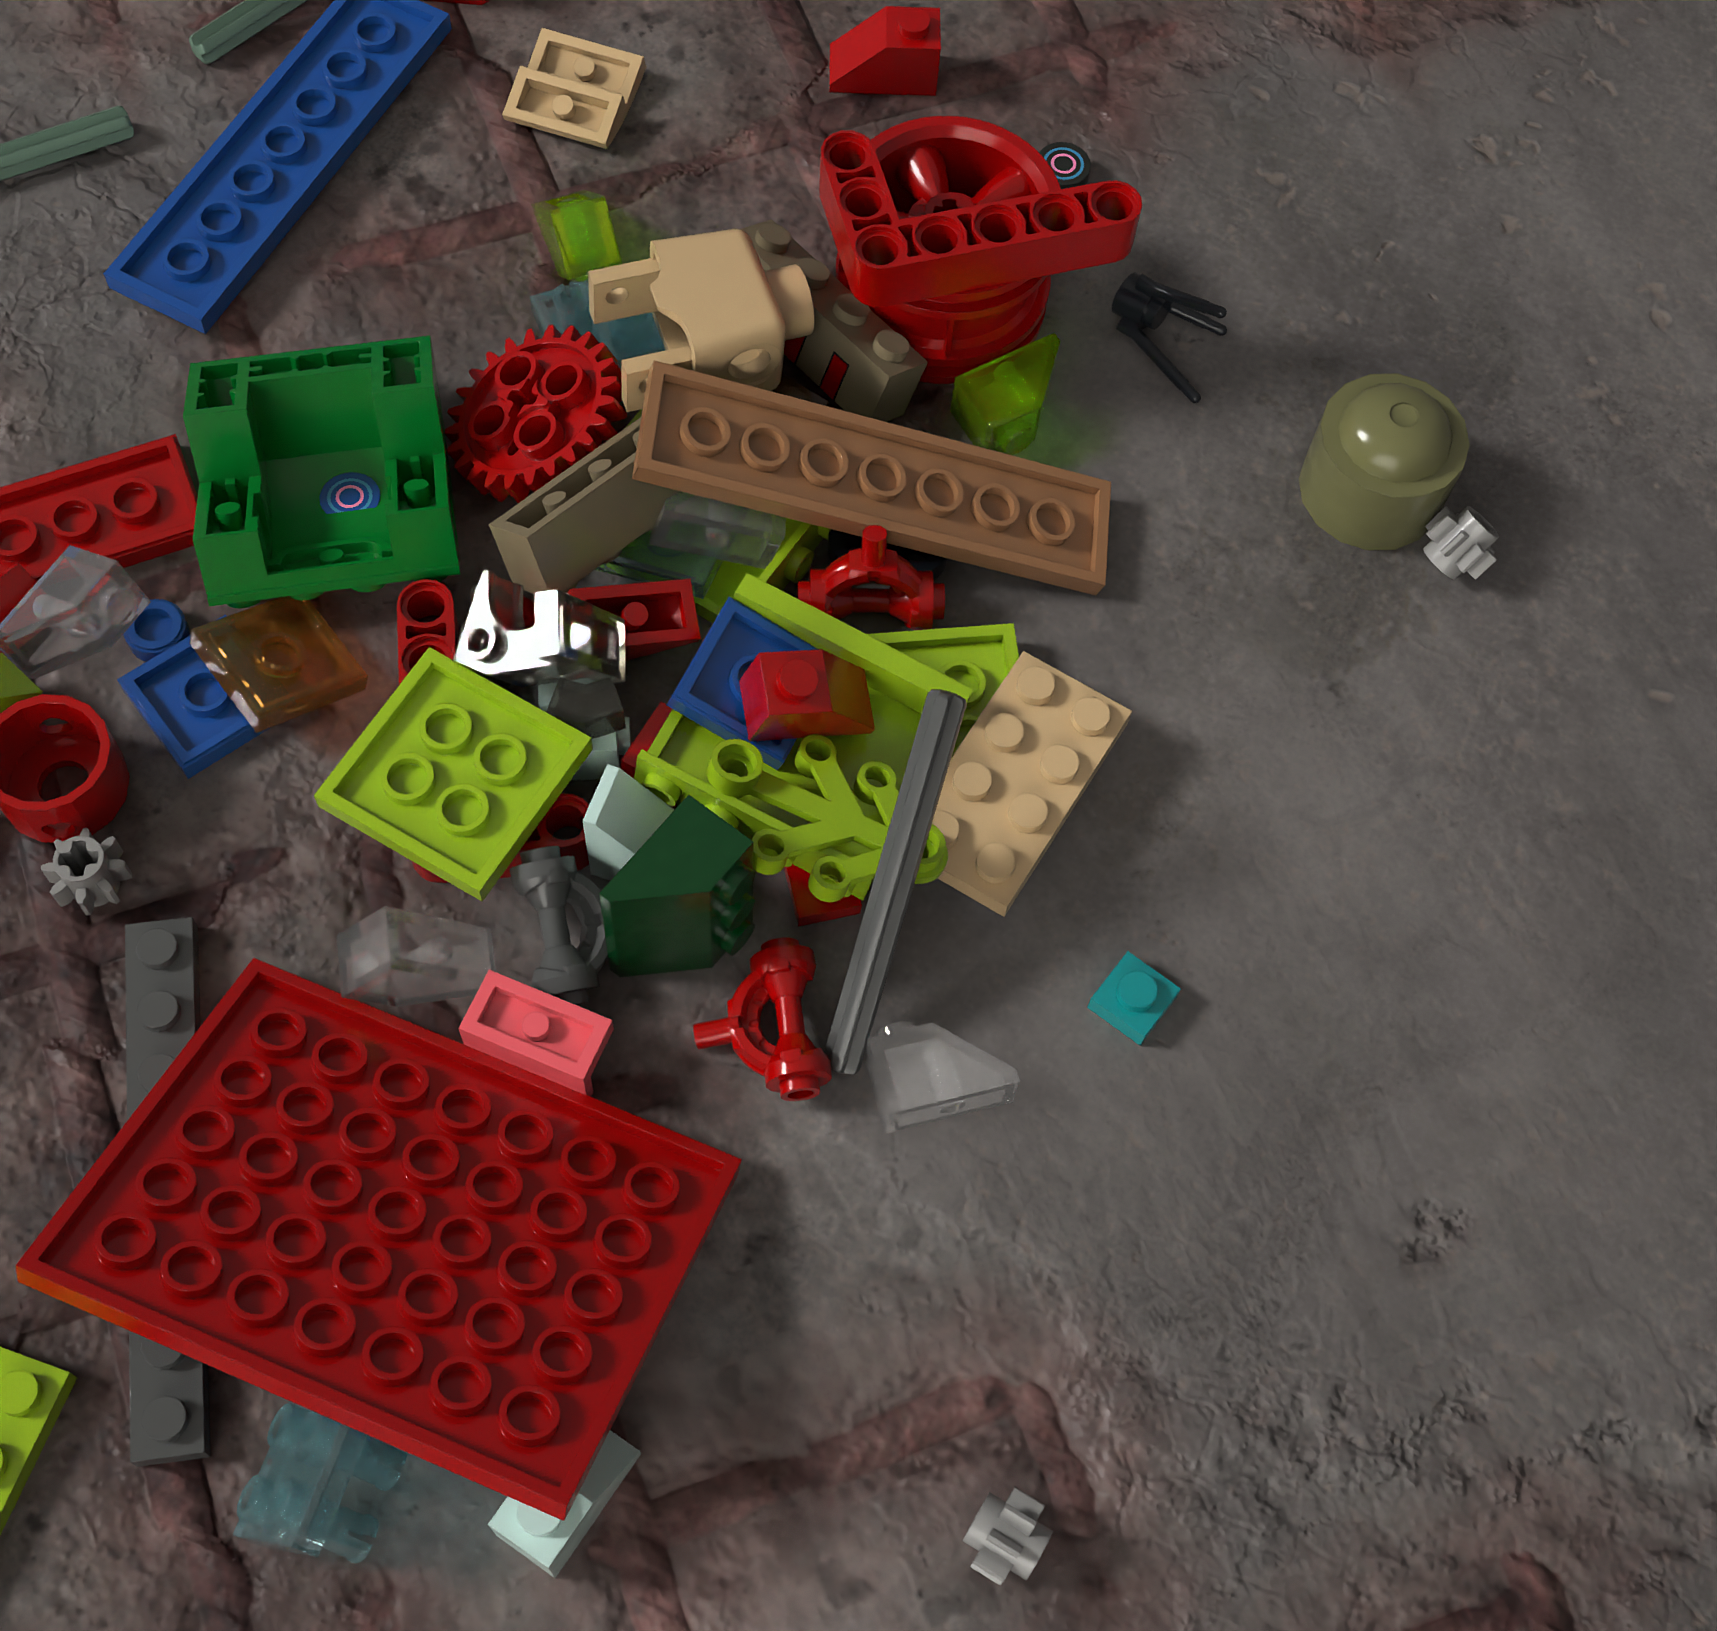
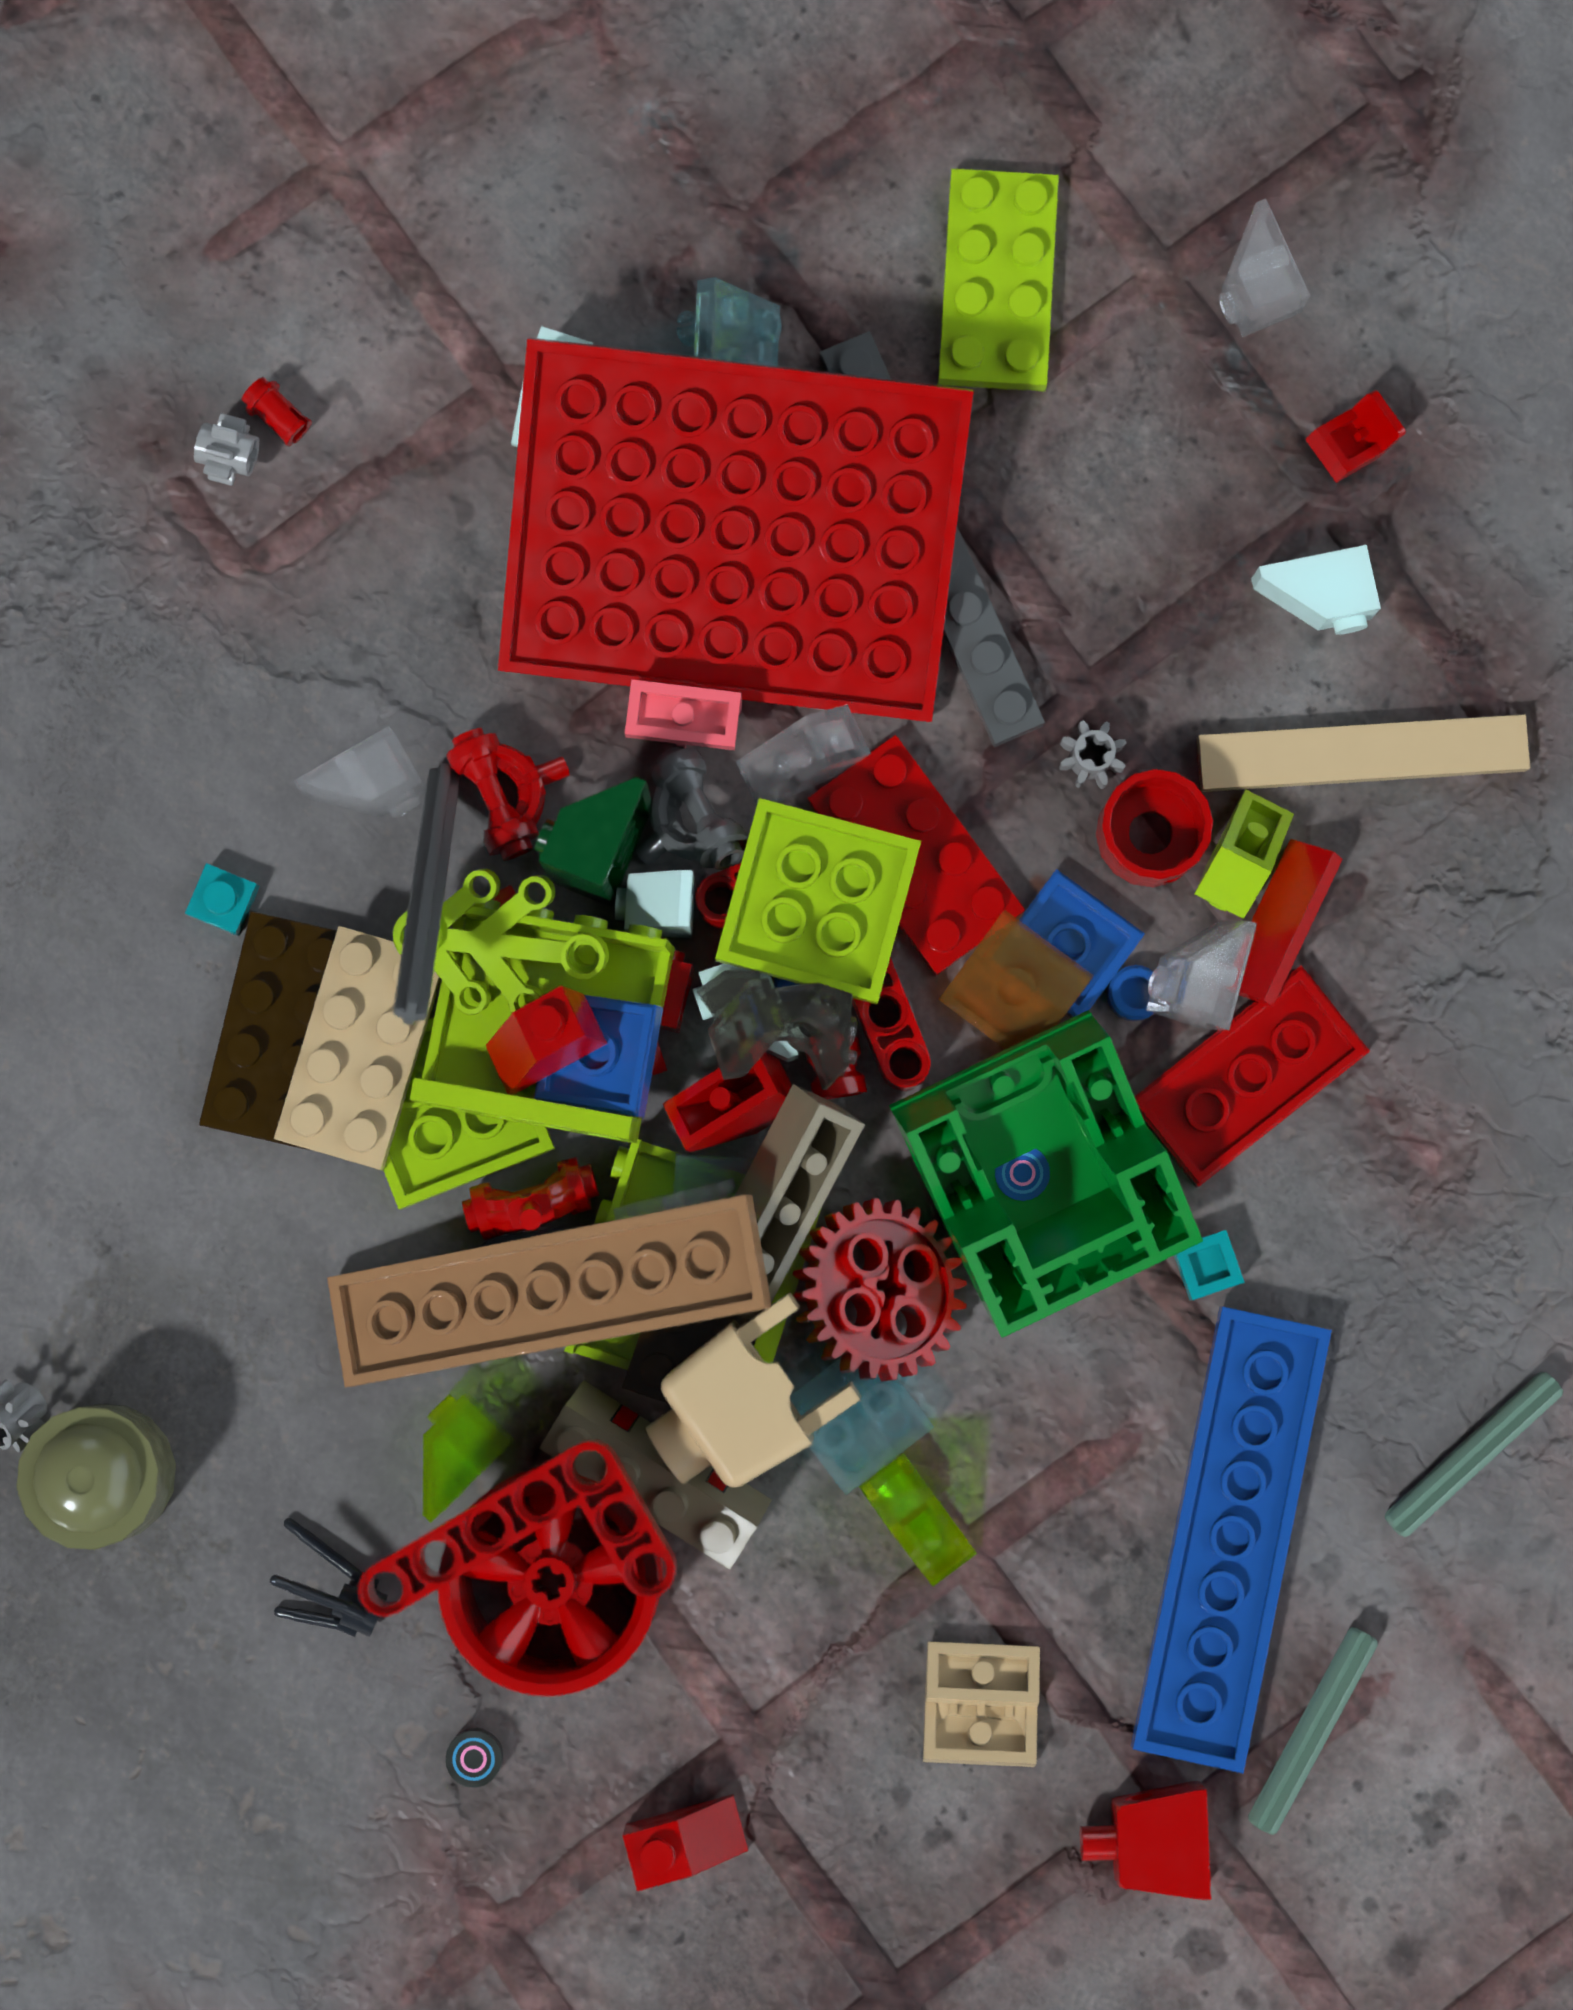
camera: 170 degrees right, 20 degrees up
(189, 349) = (1209, 1266): none -> teal plate
(322, 864) = (953, 885): none -> red plate
(931, 1578) = (275, 410): none -> red pin
(1106, 853) = (265, 1025): none -> dark brown plate

